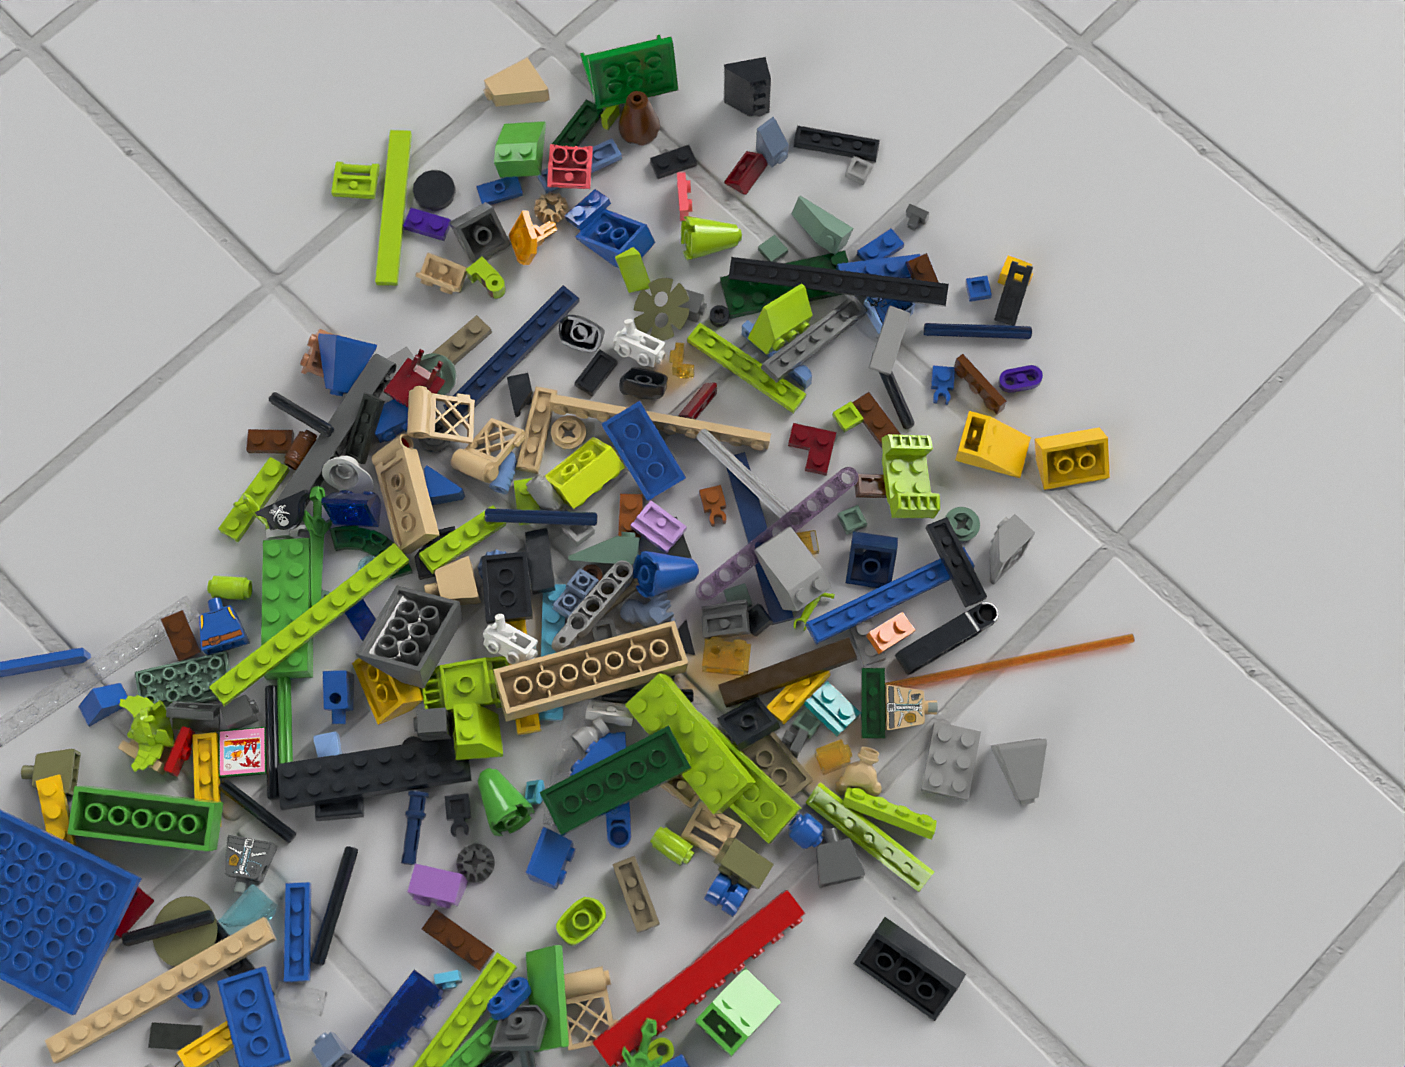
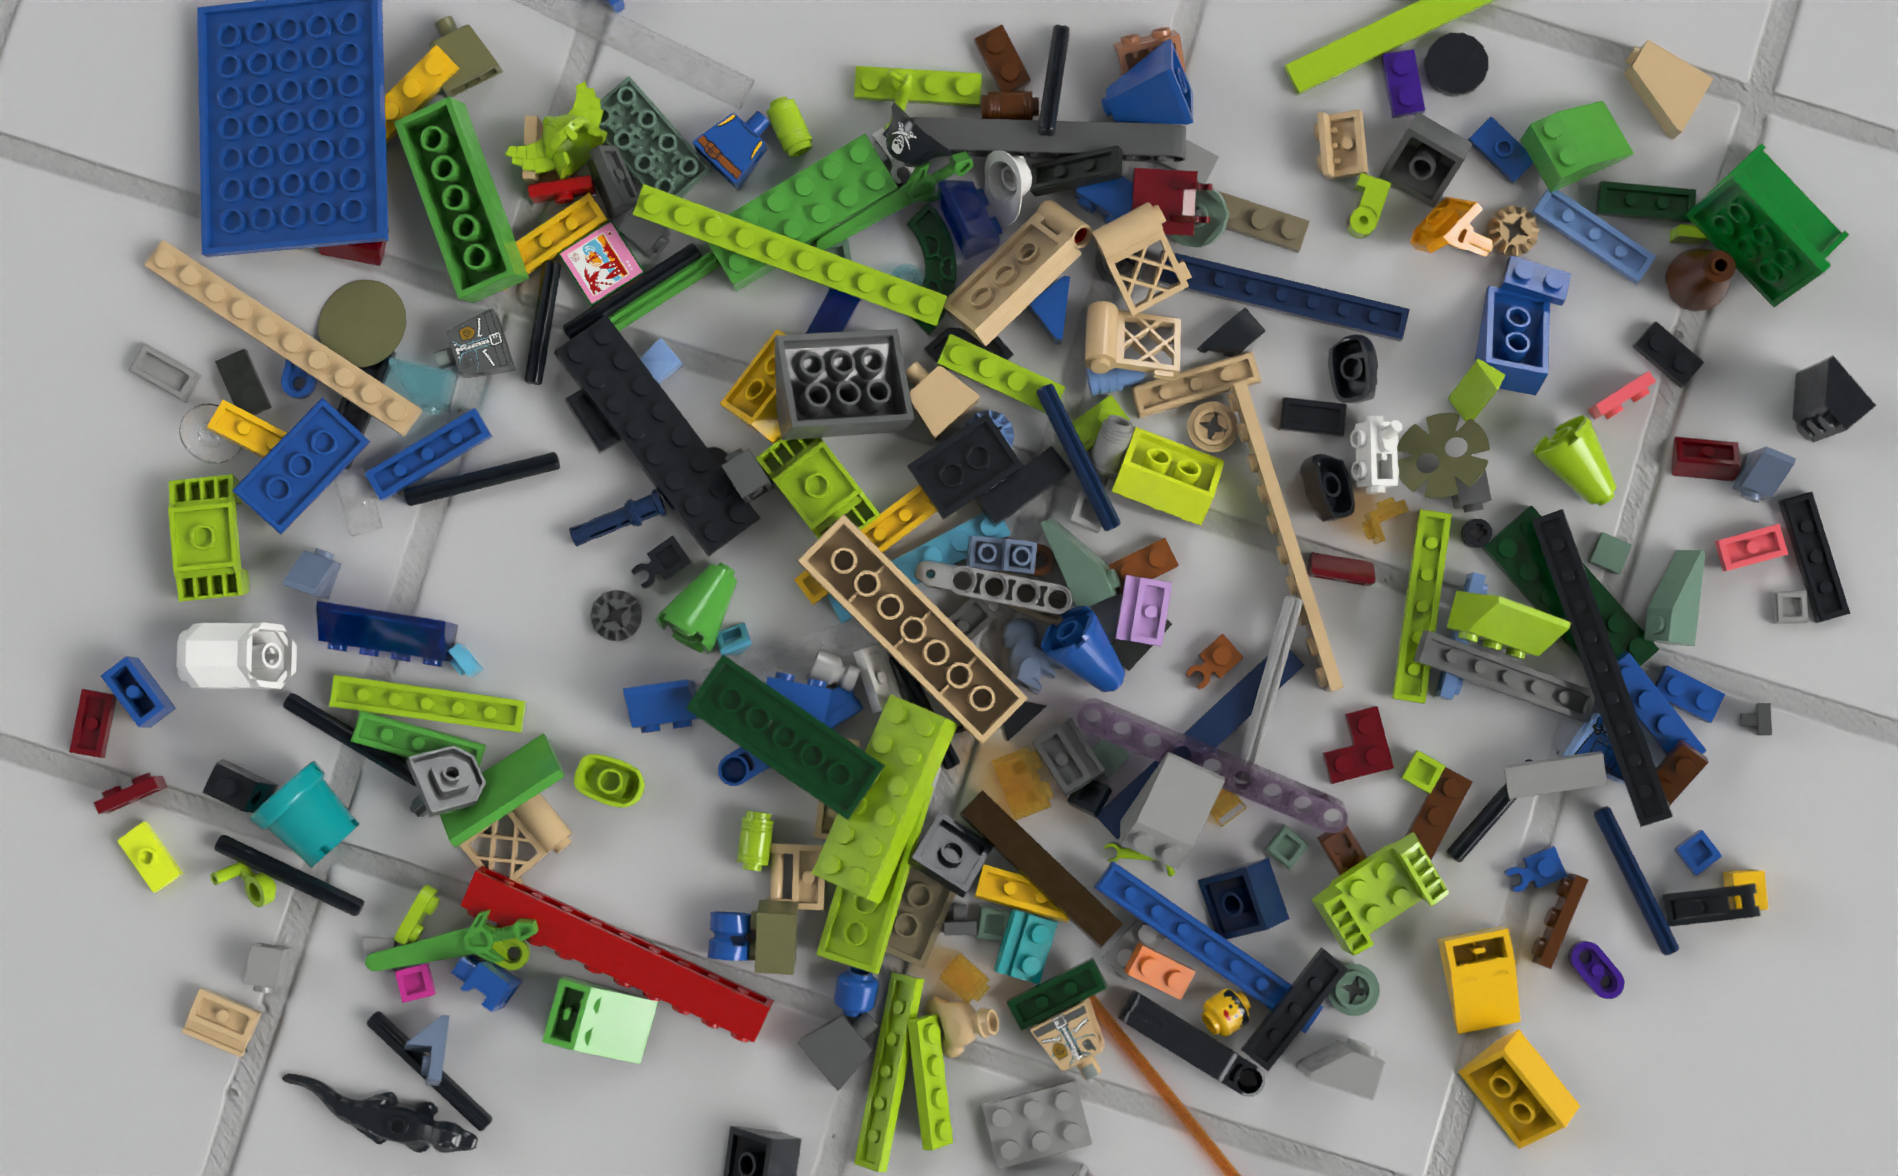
camera: 60 degrees right, 15 degrees up
(102, 702) = (573, 62): blue slope -> none
(168, 928) = (354, 303): black axle -> none
(180, 635) = (699, 104): reddish brown plate -> none
(335, 685) = (738, 334): blue torso -> none
(436, 886) = (558, 590): medium lavender slope -> none
(458, 940) = (516, 645): reddish brown plate -> none
(476, 732) = (766, 531): lime slope -> none
(509, 641) = (894, 511): white brick -> none
(509, 998) = (479, 745): blue plate -> none
(570, 167) = (1581, 225): coral slope -> none
(636, 894) = (676, 827): dark tan plate -> none
(643, 450) = (1233, 538): blue plate -> none
(812, 172) = (1751, 547): none -> coral plate
(937, 606) = (1226, 1012): none -> yellow head

